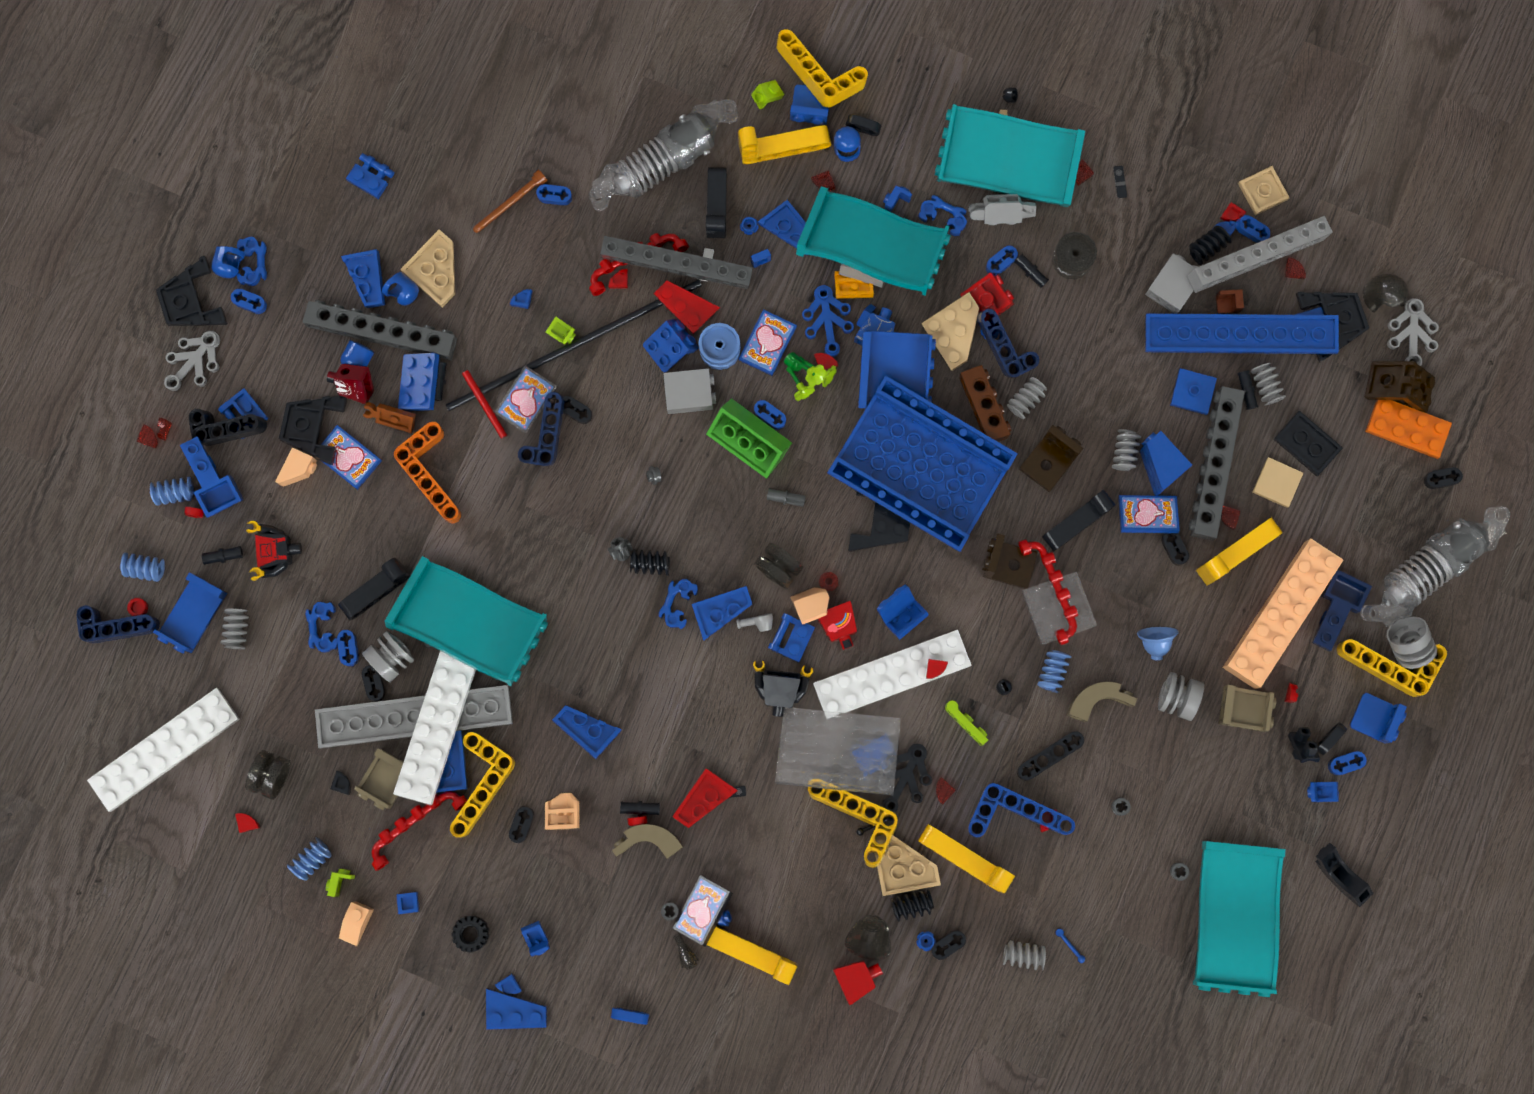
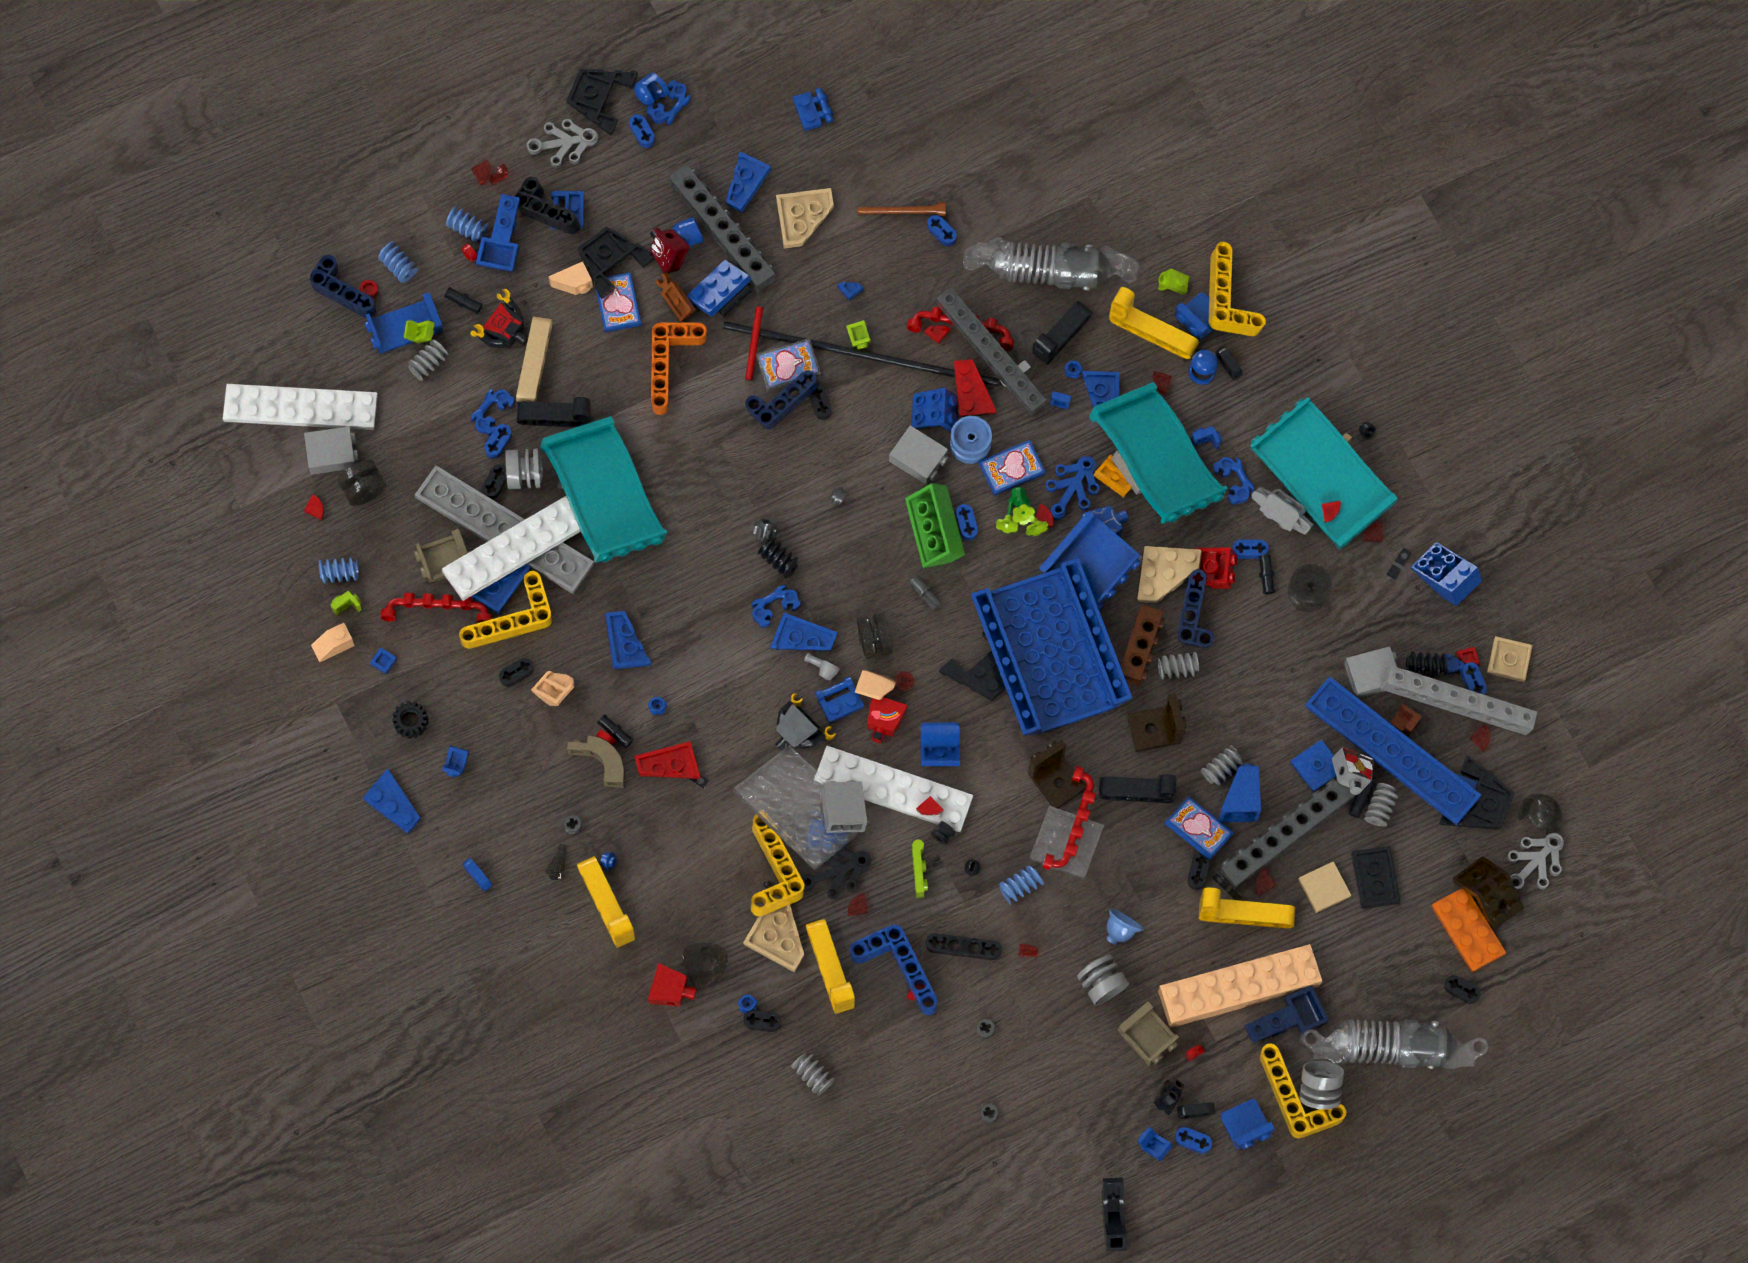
camera: 35 degrees right, 10 degrees down
(208, 610) = (419, 332): none -> lime bracket
(219, 766) = (330, 450): none -> light grey brick
(321, 558) = (534, 359): none -> tan beam
(341, 783) = (408, 535): black tile -> none
(405, 290) = (766, 214): blue helmet -> none
(509, 985) = (406, 781): blue tile -> none
(650, 760) = (657, 701): none -> blue plate
(702, 910) = (597, 842): tile -> none
(865, 314) = (1114, 504): blue tile -> none
(872, 724) = (843, 806): none -> light grey brick
(912, 905) = (759, 968): black piece -> none
(961, 679) = (943, 832): none -> black wheel
(1039, 181) = (1330, 510): none -> red tile
(1059, 932) = (855, 1083): blue hinge -> none
(1083, 702) = (1040, 927): dark tan arch -> none
(1101, 719) = (1027, 950): none -> clear red tile
(1163, 160) = (1447, 573): none -> blue slope
(1204, 542) = (1227, 887): none -> black sticker
(1228, 374) = (1353, 769): none -> torso
(1239, 918) = (1004, 1183): teal panel -> none

